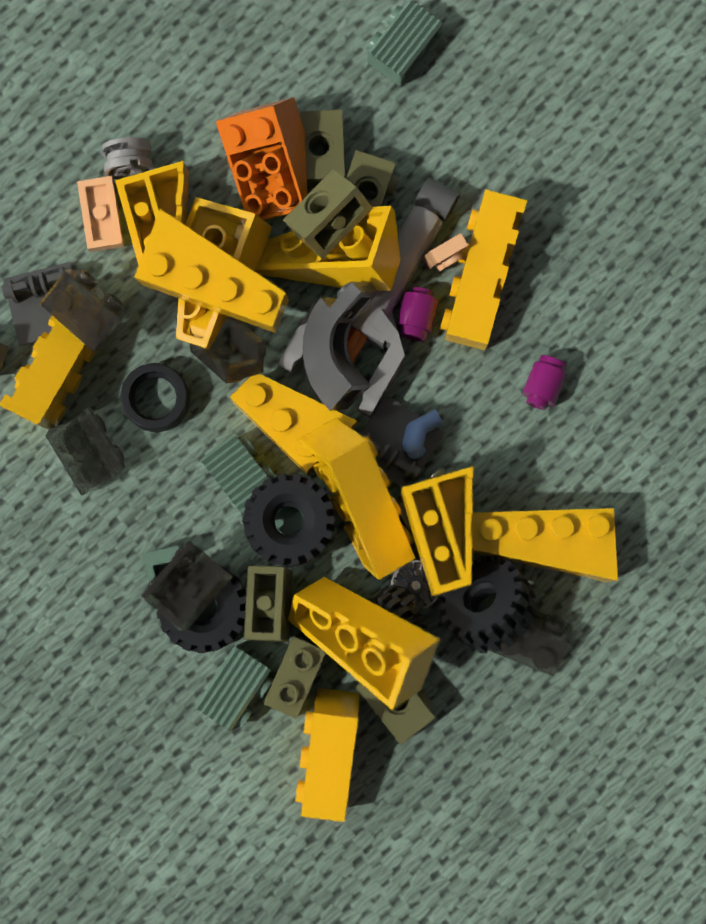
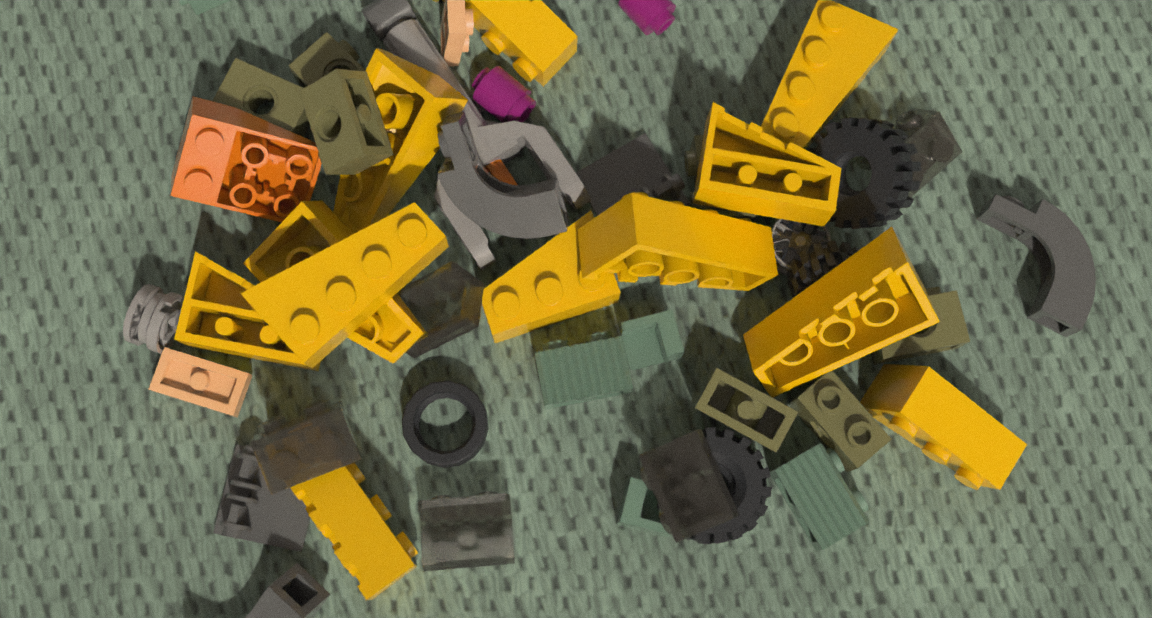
camera: 65 degrees left, 5 degrees down
(288, 492) = (673, 302): black tyre -> none
(416, 432) = (633, 160): medium blue arm -> none
(506, 790) = (1062, 258): none -> dark grey arch

